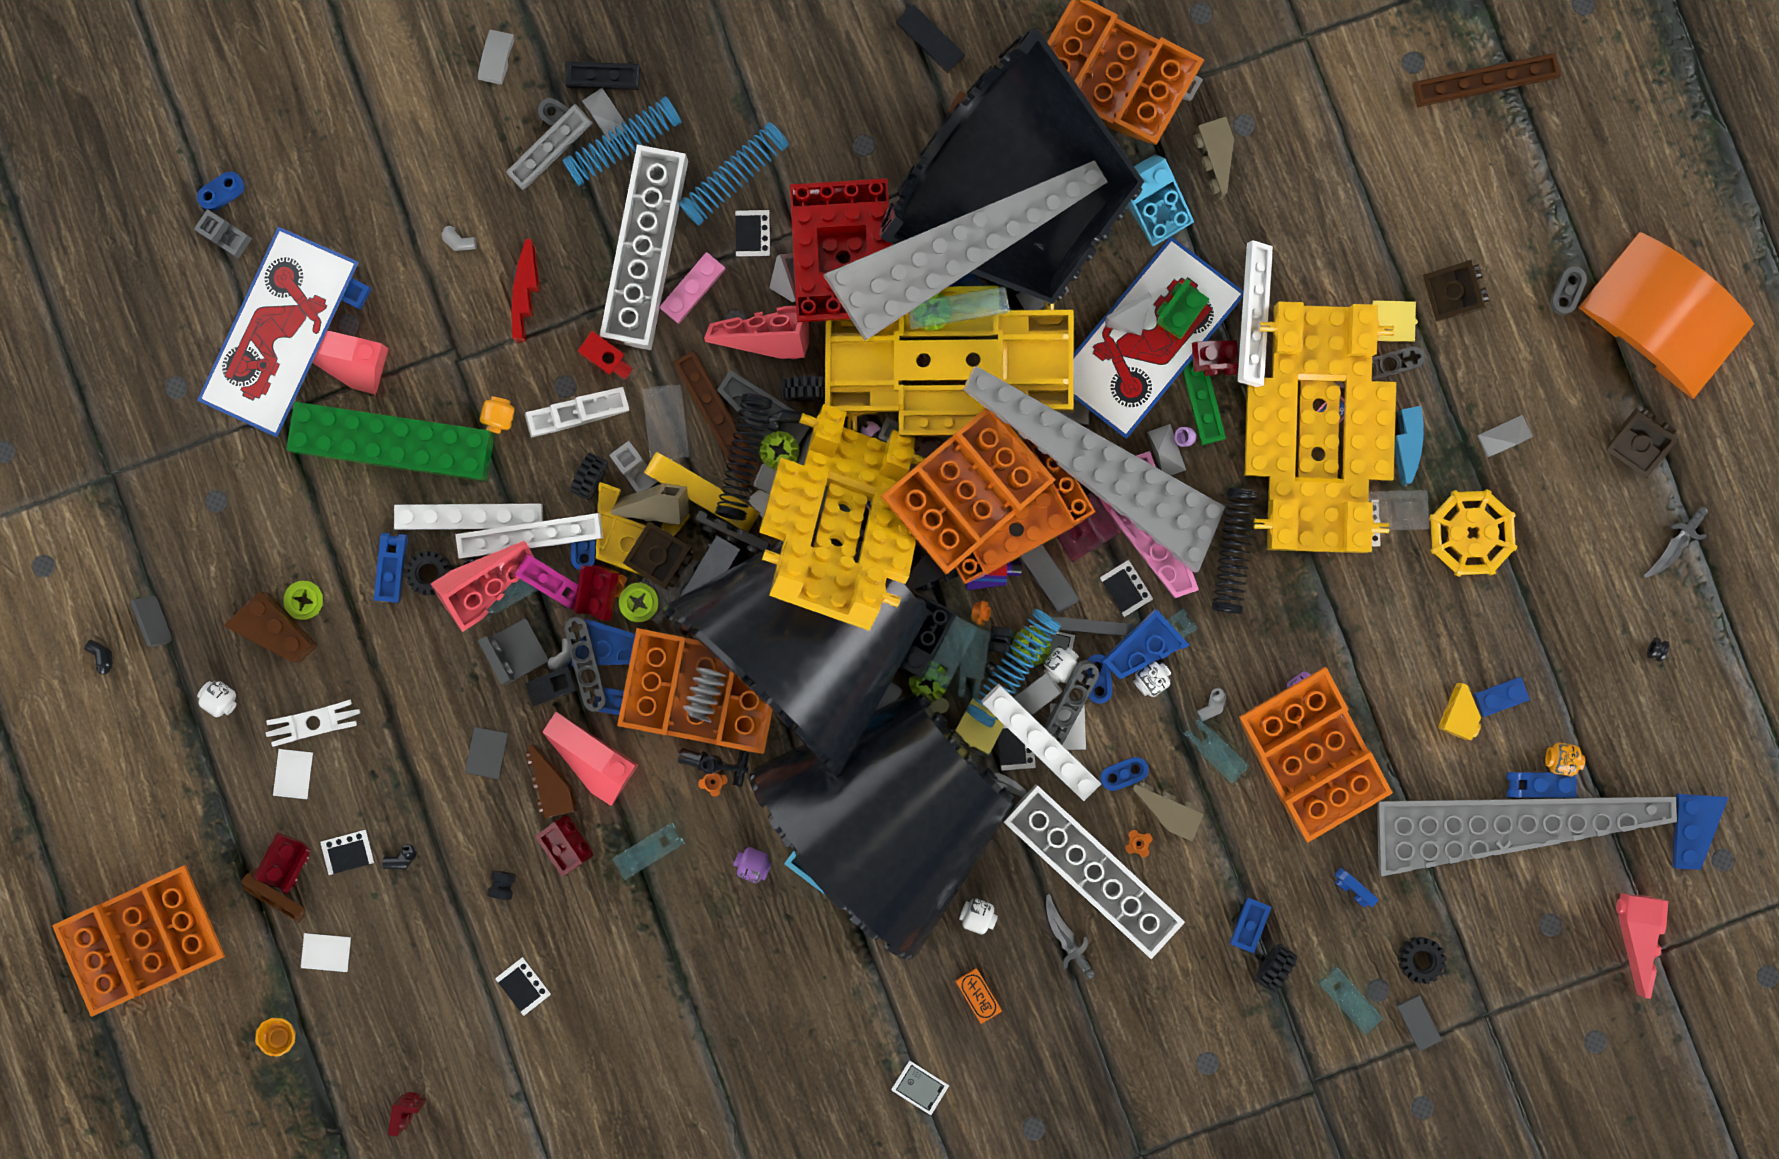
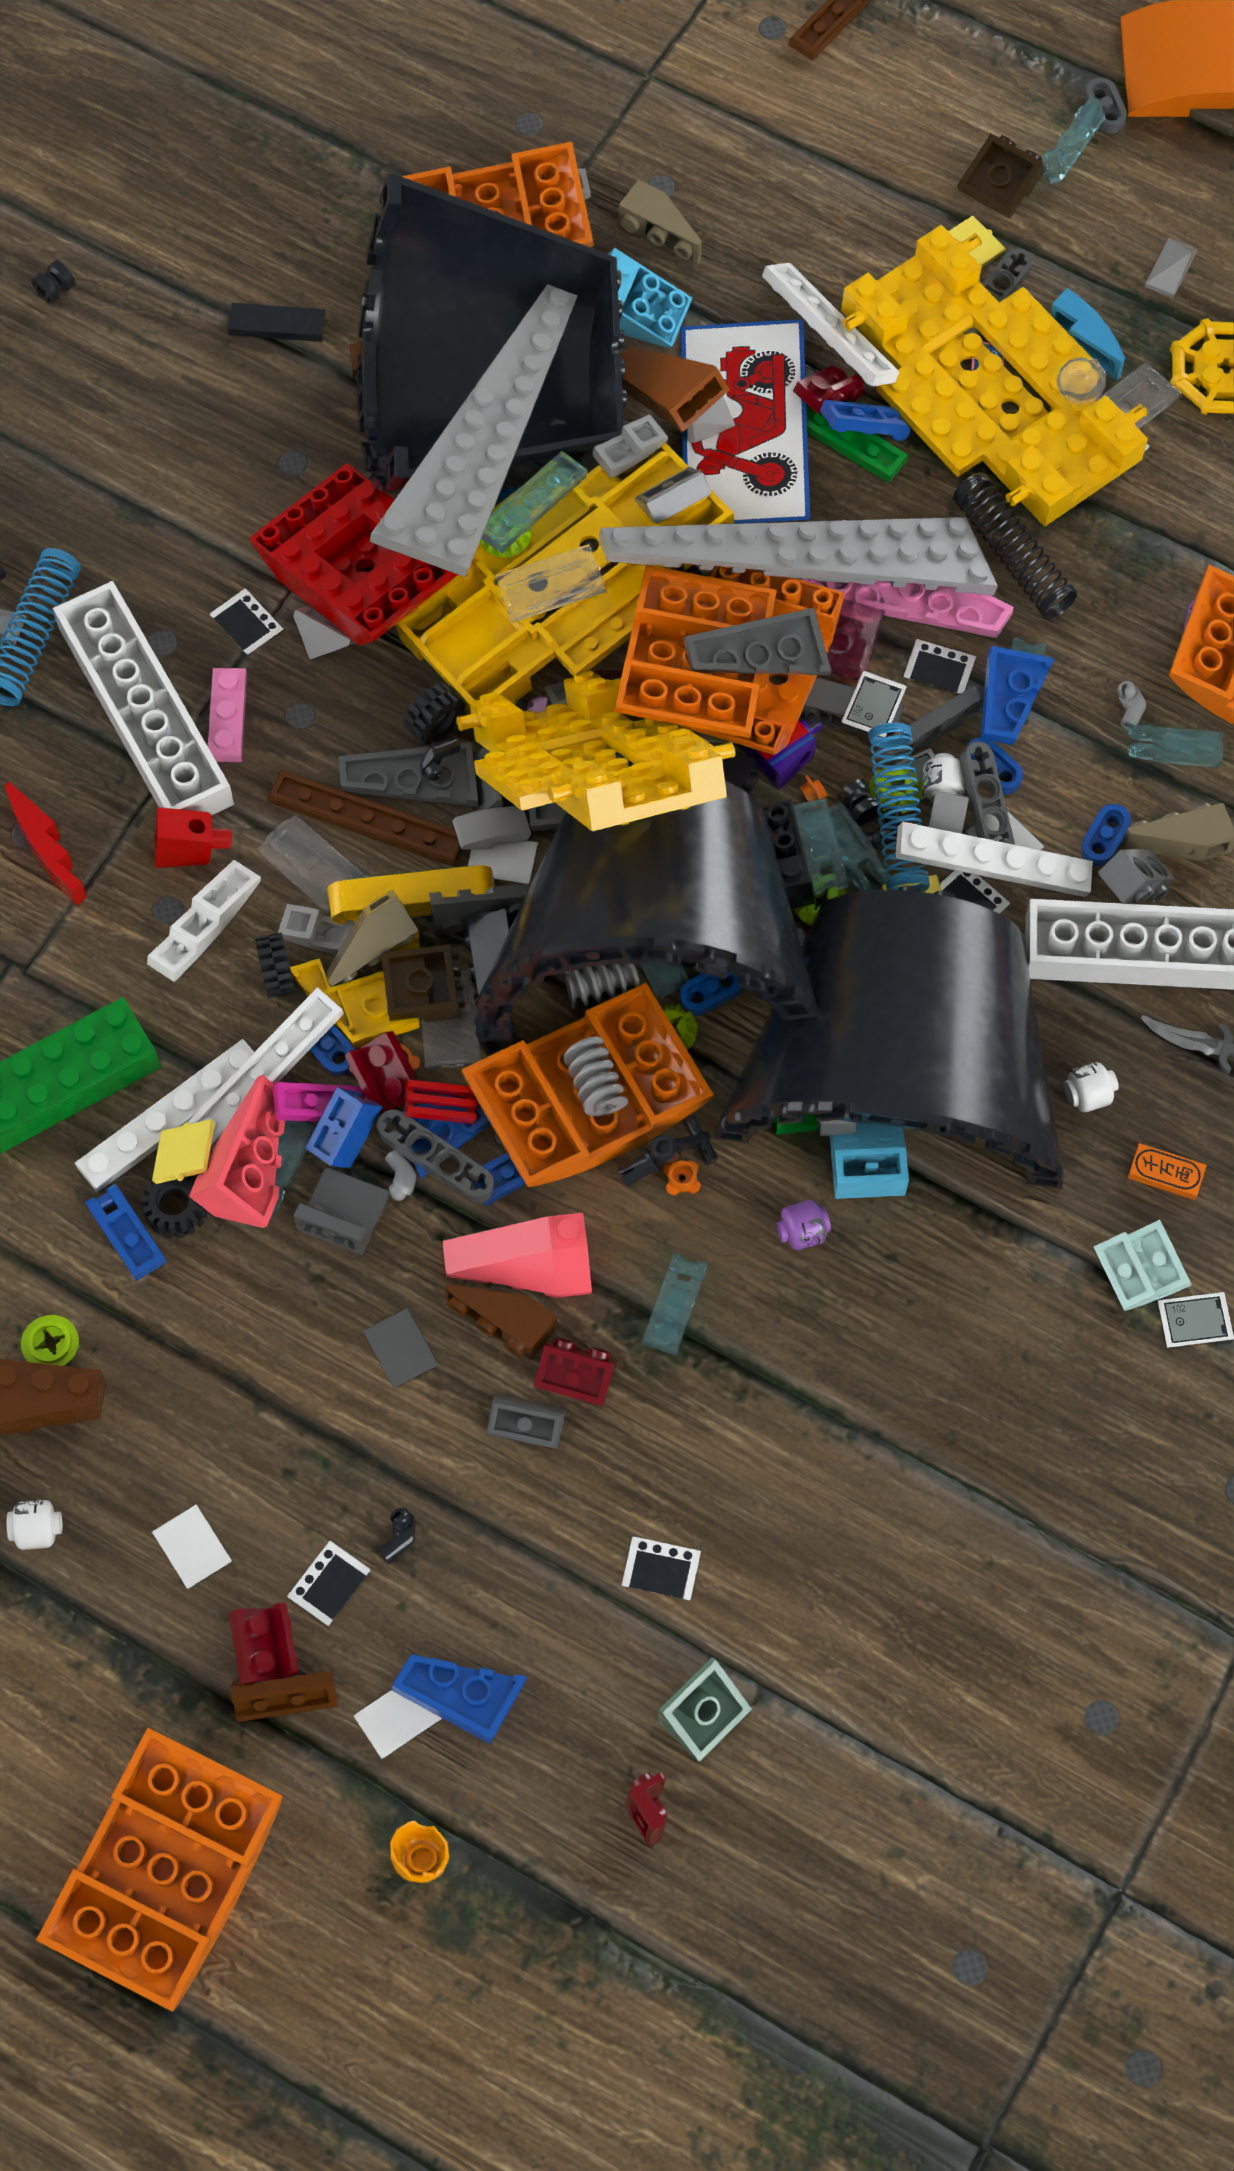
camera: 40 degrees left, 20 degrees down
(298, 723) = (157, 1483): white piece -> none
(363, 970) = (461, 1695): none -> blue wing
(451, 551) = (183, 1151): none -> light yellow piece
(478, 1081) = (703, 1710): none -> sand green slope
(497, 414) = (117, 979): light orange head -> none
(501, 885) = (541, 1468): black wheel -> none
(518, 849) = (526, 1421): none -> dark grey slope
(548, 607) = (343, 1128): none -> blue hinge
(552, 686) = (417, 1209): black slope -> none
(595, 622) = (440, 1089): none -> red tile
(627, 605) = (451, 1042): lime gear -> none
(756, 401) = (396, 766): black piece -> none
(769, 334) = (363, 685): coral wedge -> none
(772, 132) = (194, 520): dark azure piece -> none
(775, 439) = (450, 801): lime gear -> none
(917, 1036) = (1142, 1266): none -> light aqua slope
(928, 368) = (550, 583): none -> clear piece
(1014, 520) = (765, 646): none -> dark grey wing
(1046, 369) = (673, 494): none -> slope
(1049, 315) = (634, 444): none -> light grey slope
(1059, 588) = (873, 702): none -> light grey sticker
(1112, 819) = (1137, 876): none -> dark grey brick
(1116, 285) = (672, 385): none -> dark orange slope
(1132, 846) = (1182, 898): orange plate -> none
(1152, 679) = (1047, 724): white head -> none
(1166, 450) = (852, 507): light grey slope -> none
(1182, 309) = (755, 372): green bracket -> none
(1185, 436) = (863, 489): lavender hinge -> none
(1217, 397) = (865, 419): none -> blue plate
(1366, 480) = (1081, 381): none -> clear hair
(1520, 303) = (1073, 141): none -> clear light blue plate

